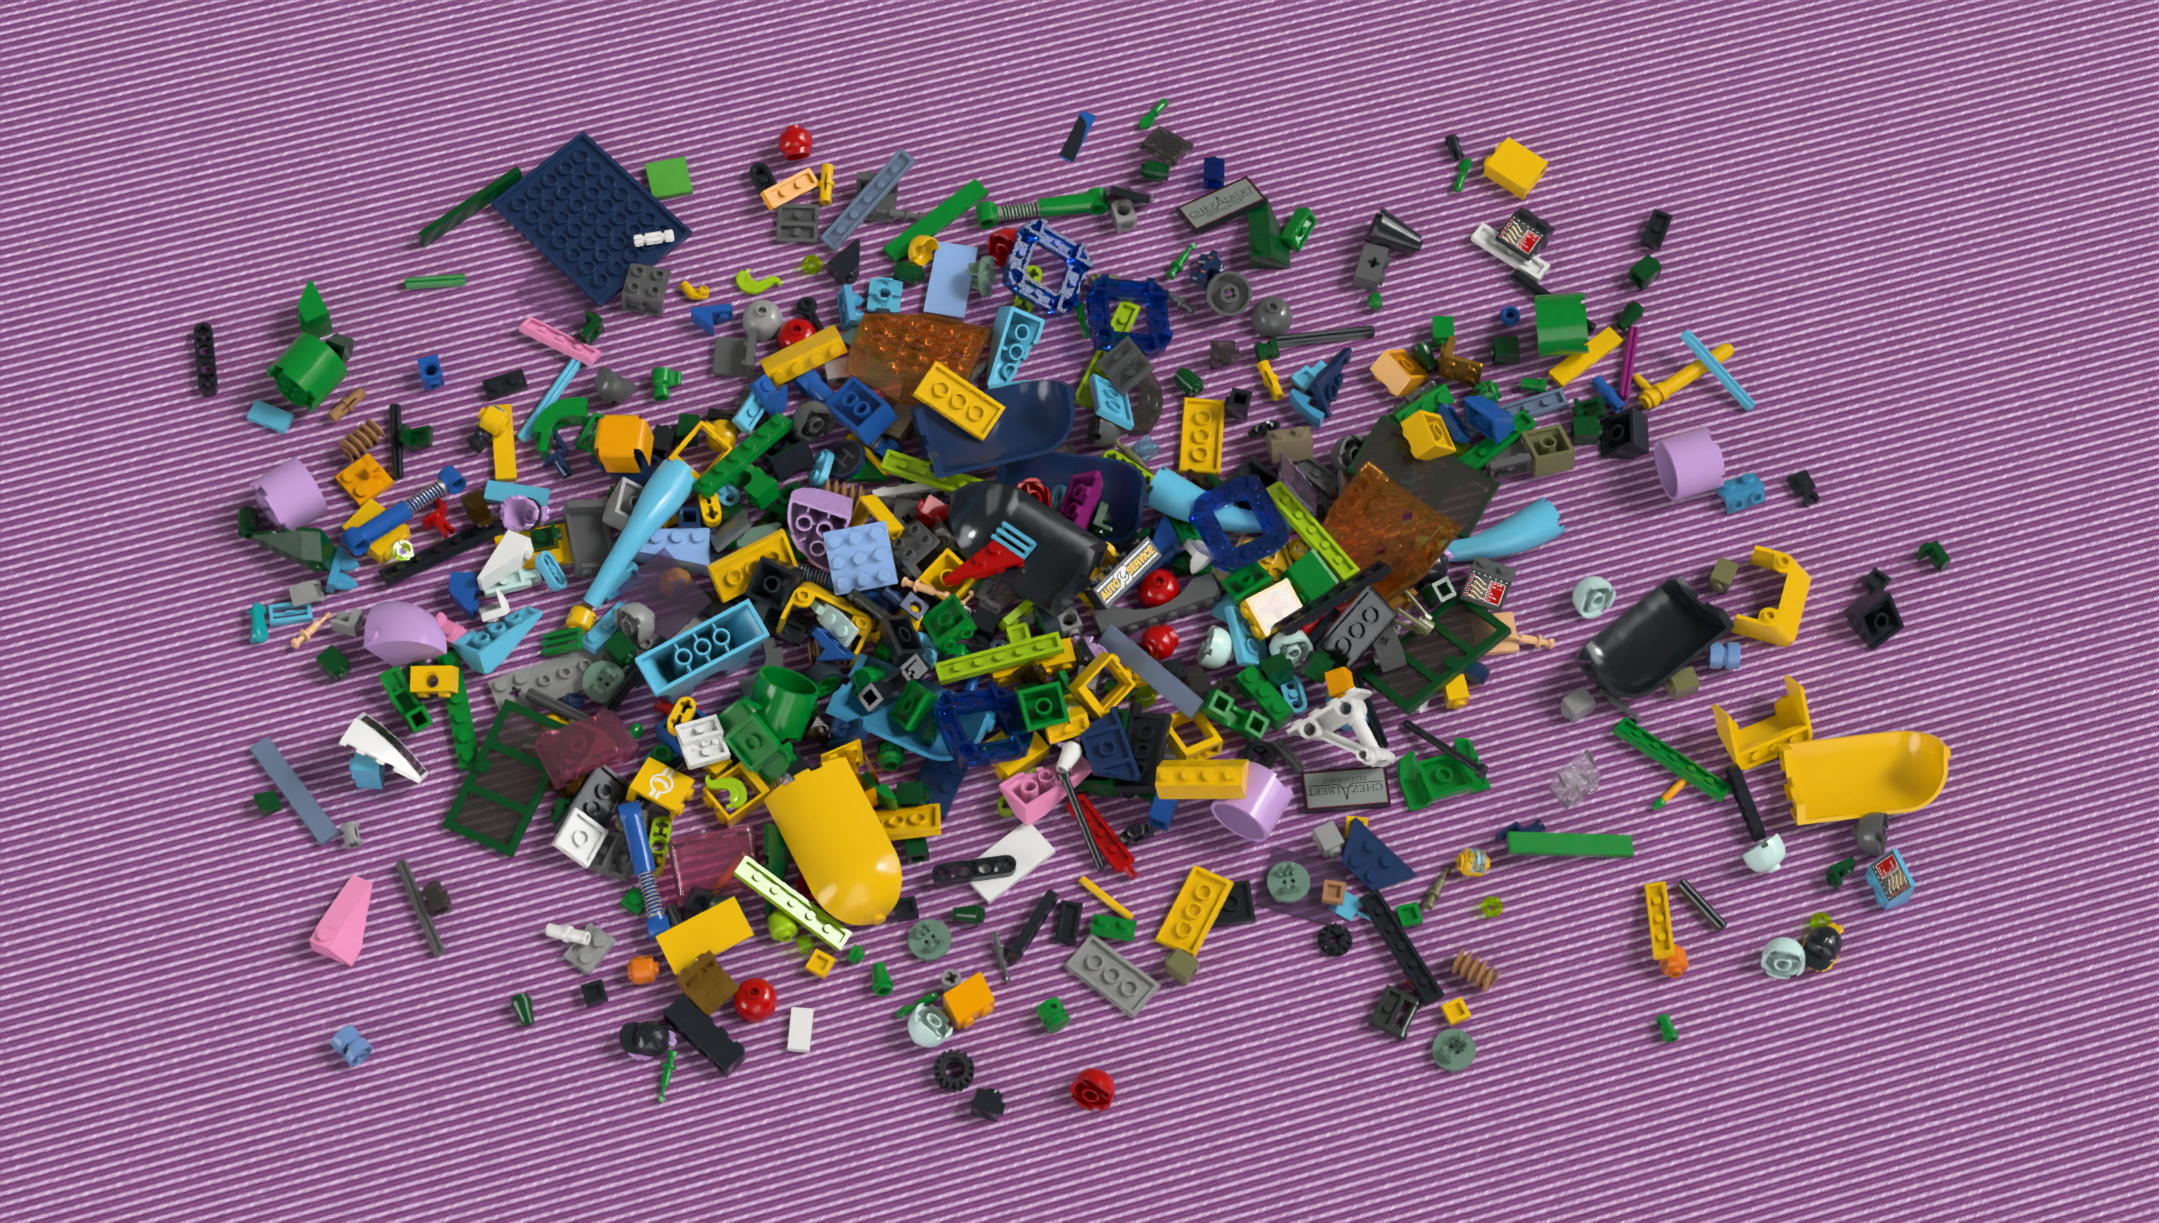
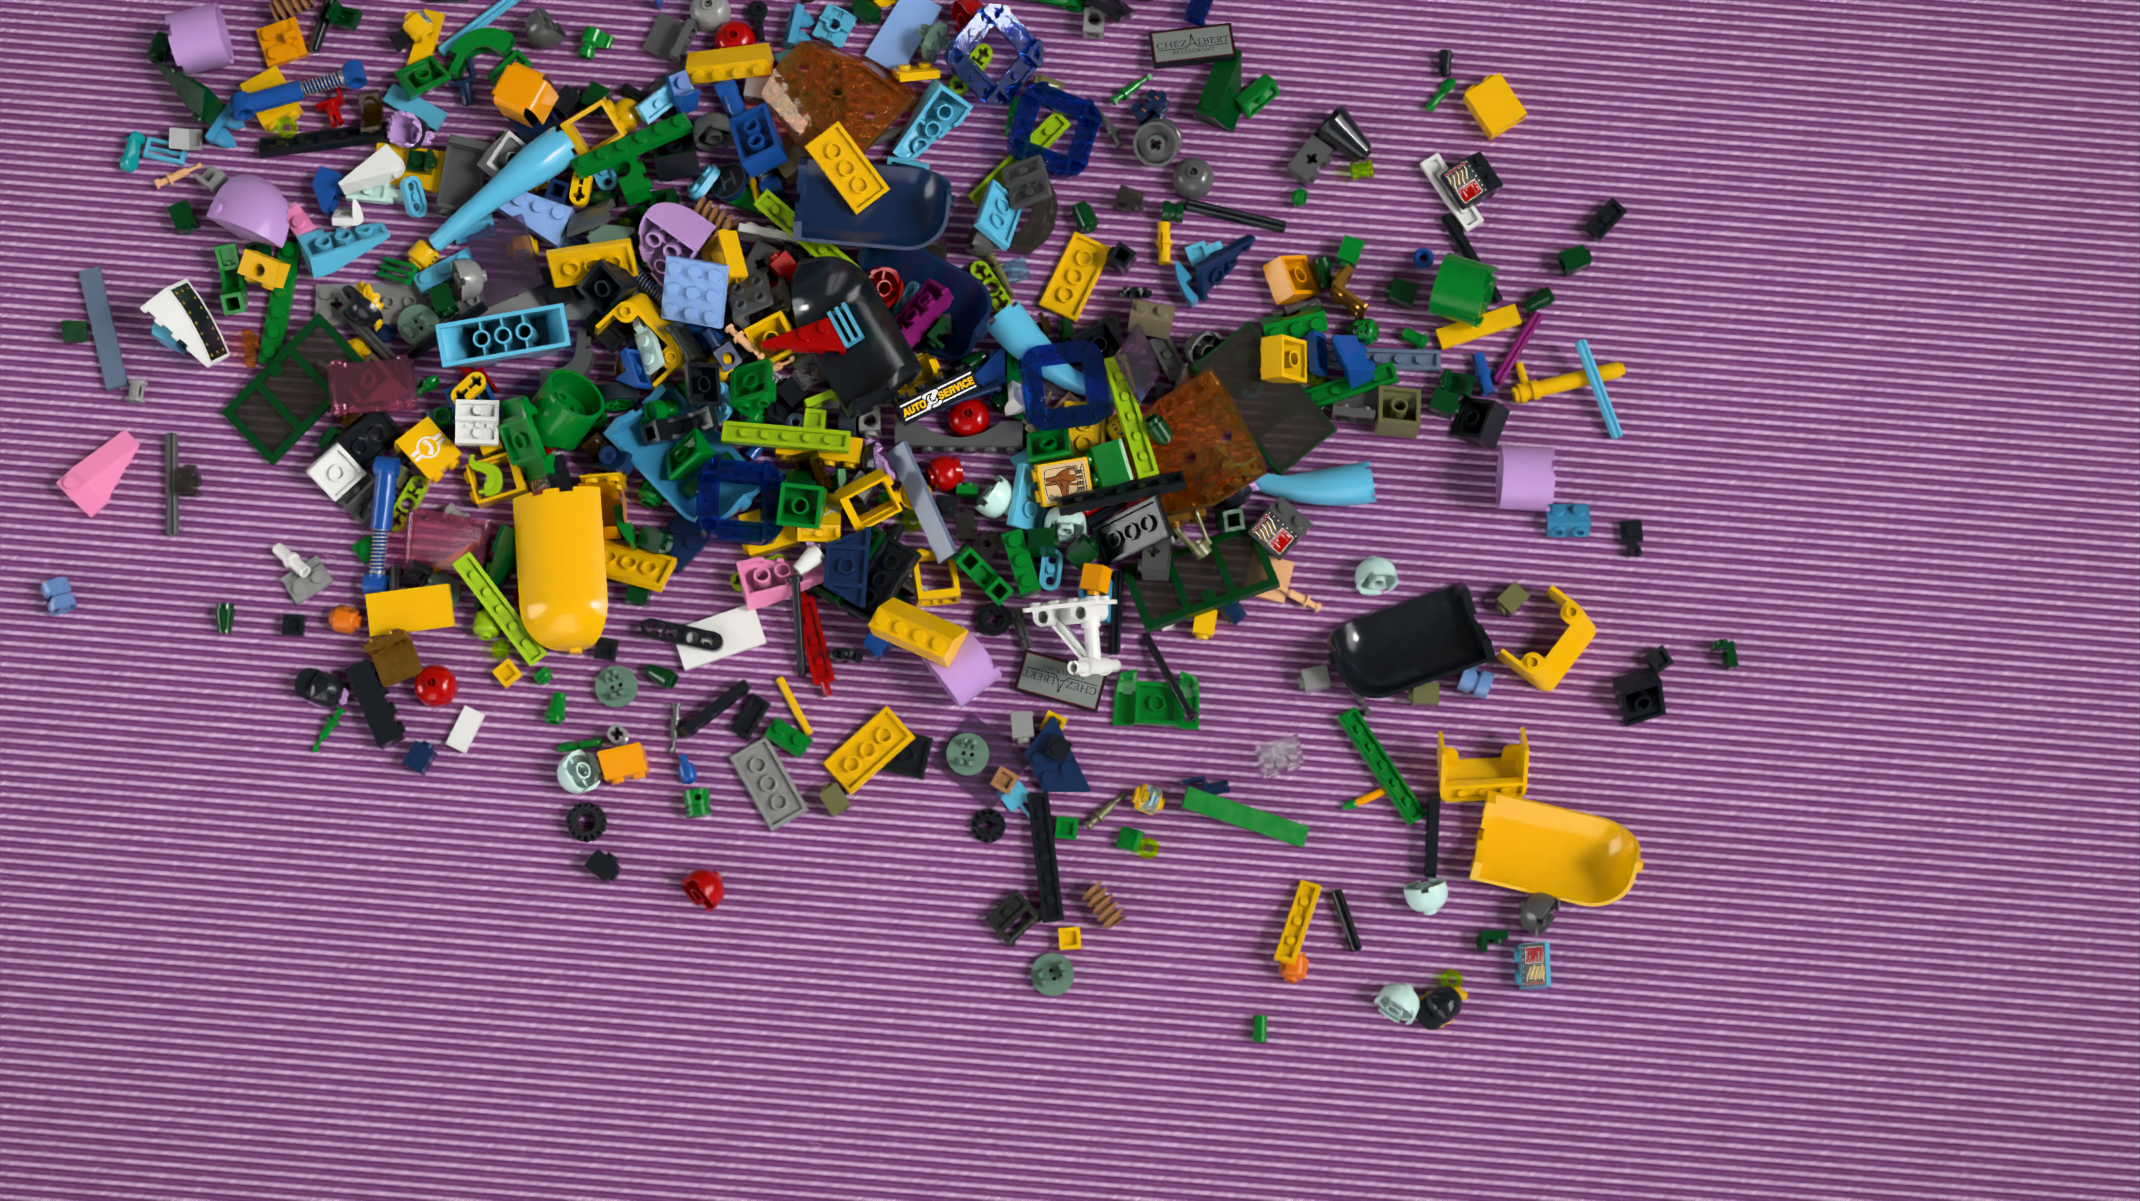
camera: 25 degrees right, 15 degrees up
(446, 754) = (250, 343): none -> clear orange plate
(516, 463) = (422, 77): none -> green slope
(547, 676) = (364, 304): none -> black hair
(768, 1069) = (420, 757): none -> dark blue brick
(985, 304) = (922, 71): none -> yellow plate
(1029, 990) = (686, 770): none -> blue cylinder
(1186, 651) = (967, 490): none -> green plate
(1342, 532) = (1158, 429): none -> dark green brick
(1372, 842) = (1058, 748): none -> black plate
(1420, 260) = (1361, 170): none -> clear neon green bush
(1471, 904) = (1129, 839): none -> green plate

